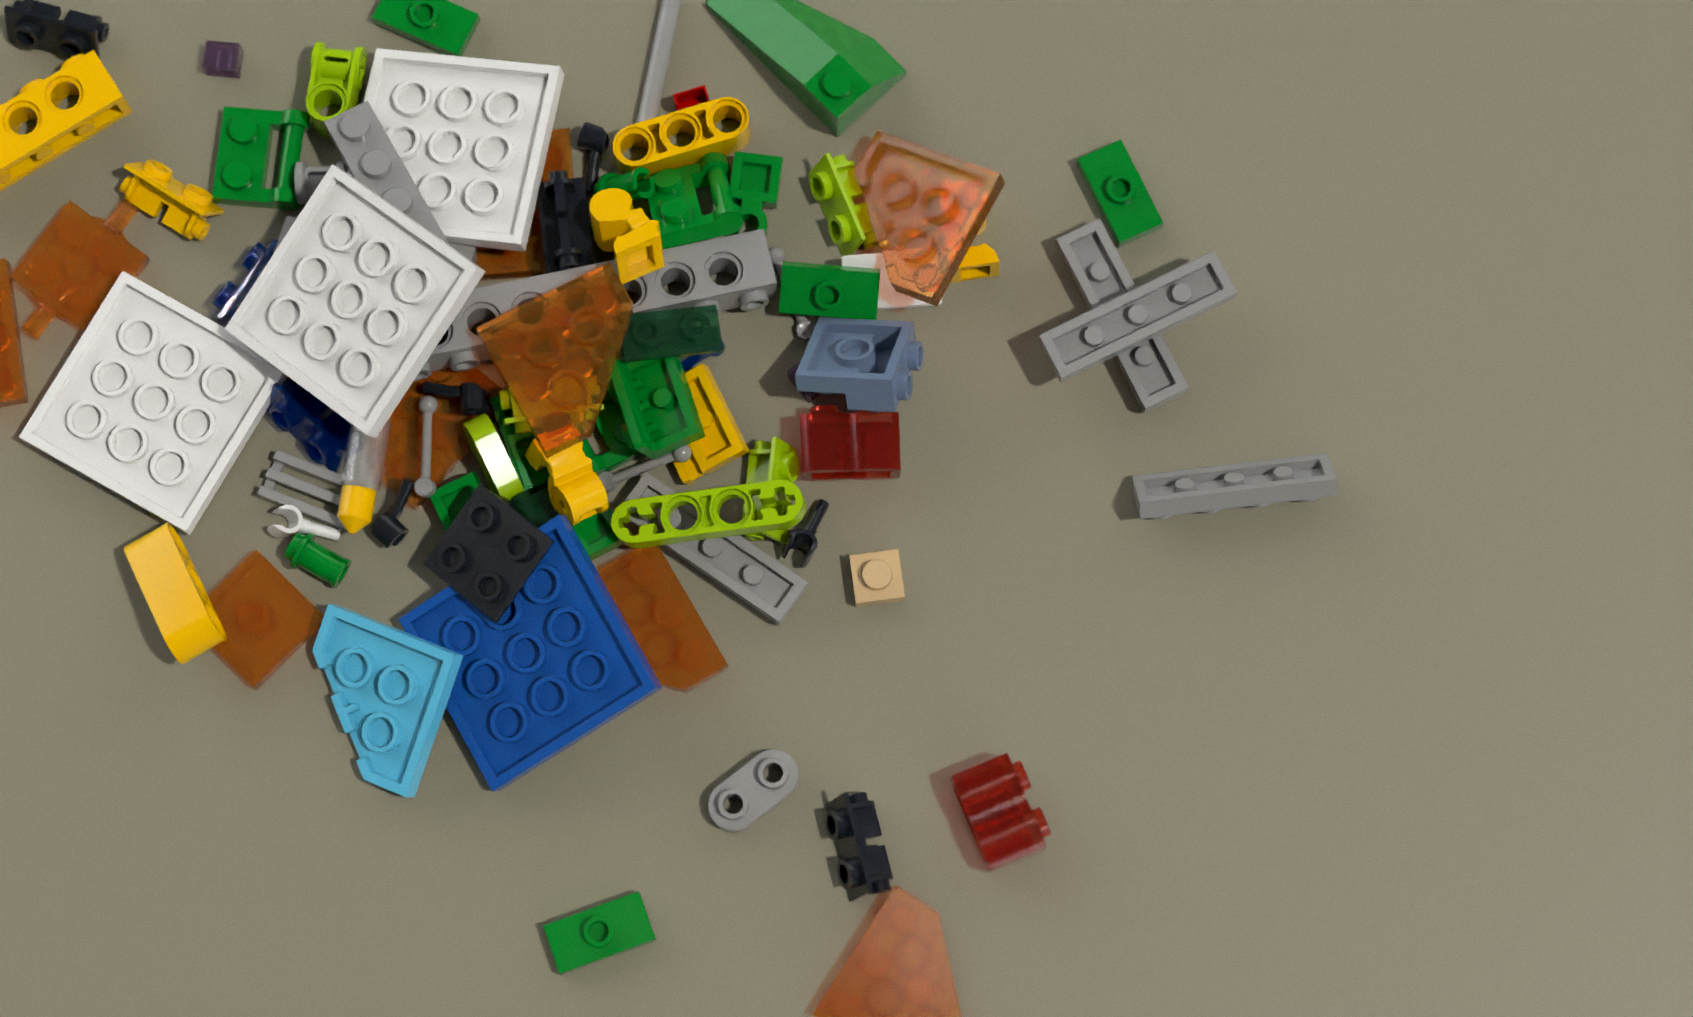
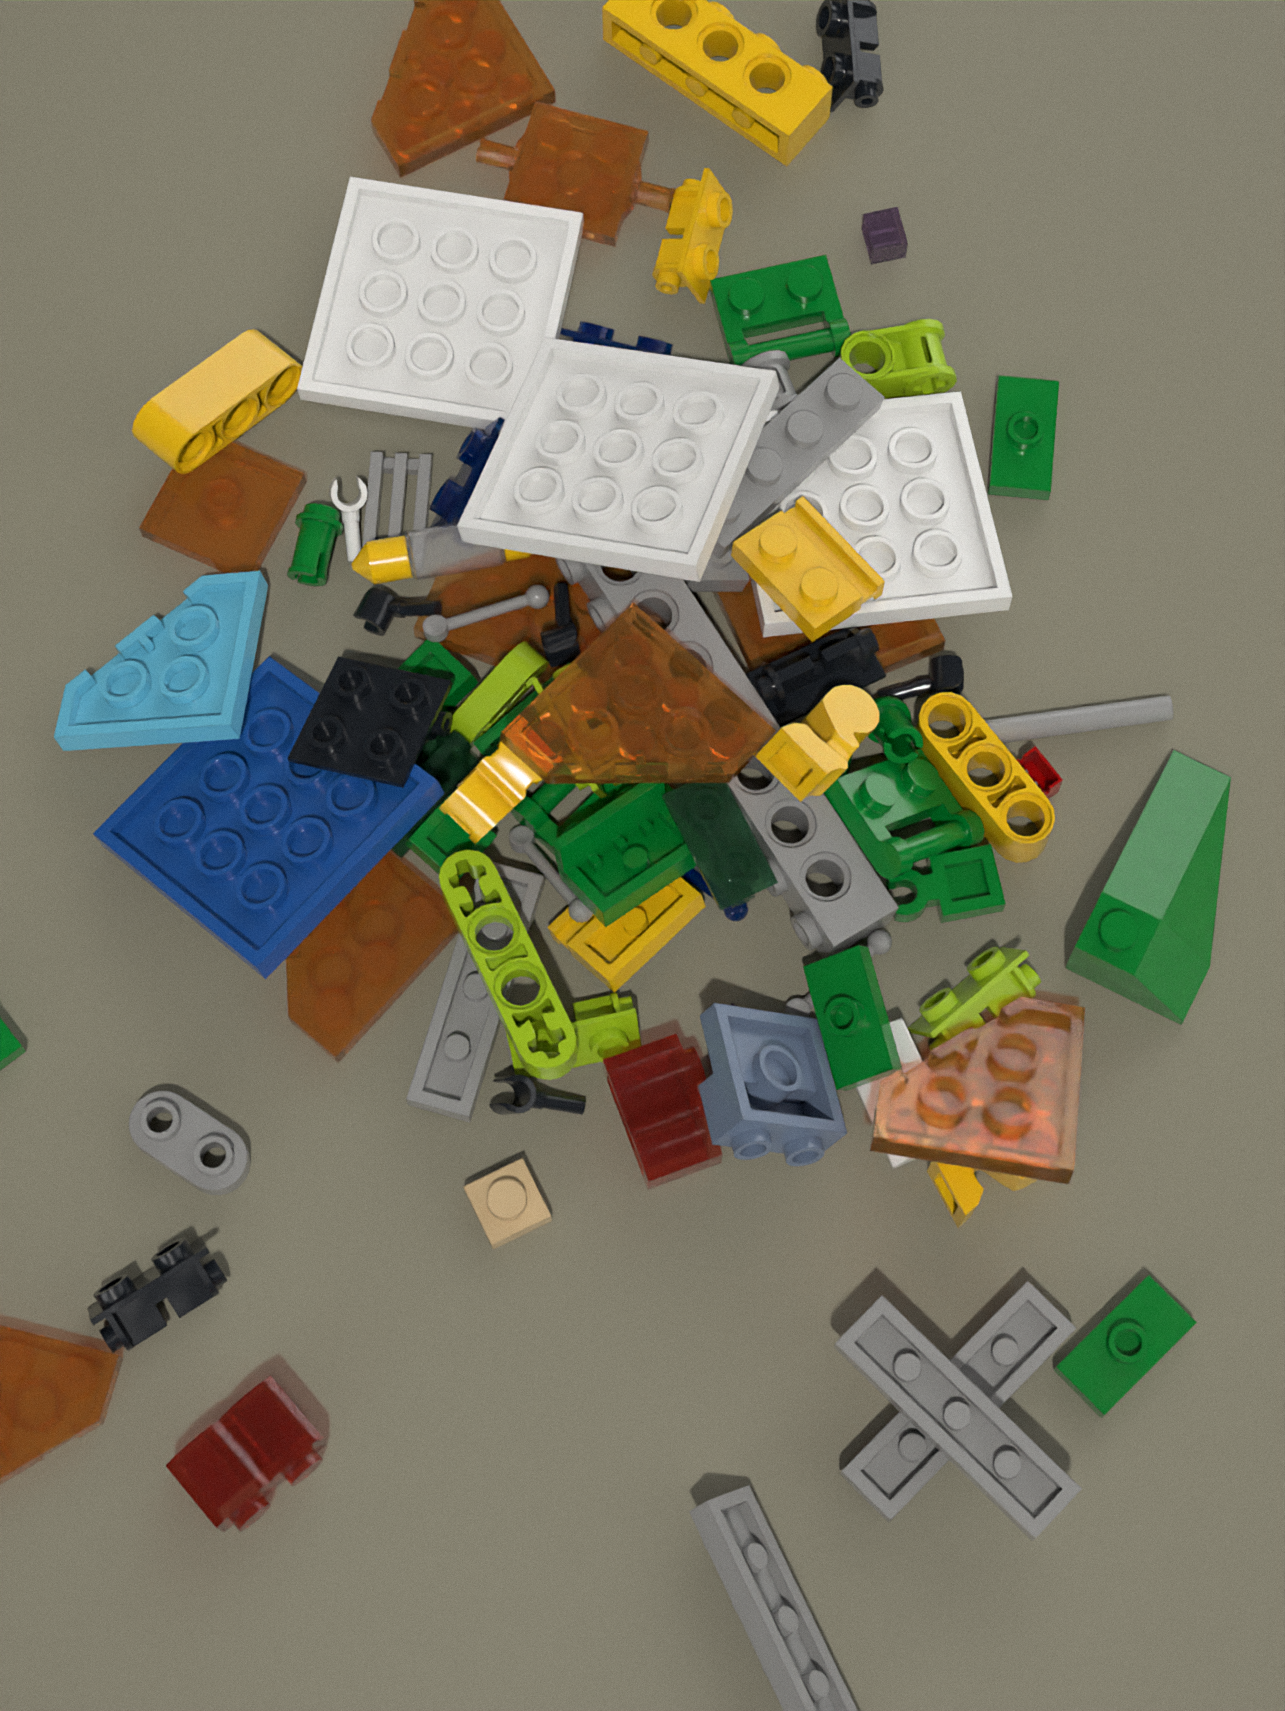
camera: 70 degrees right, 5 degrees down
(488, 199) = (807, 568): none -> yellow plate

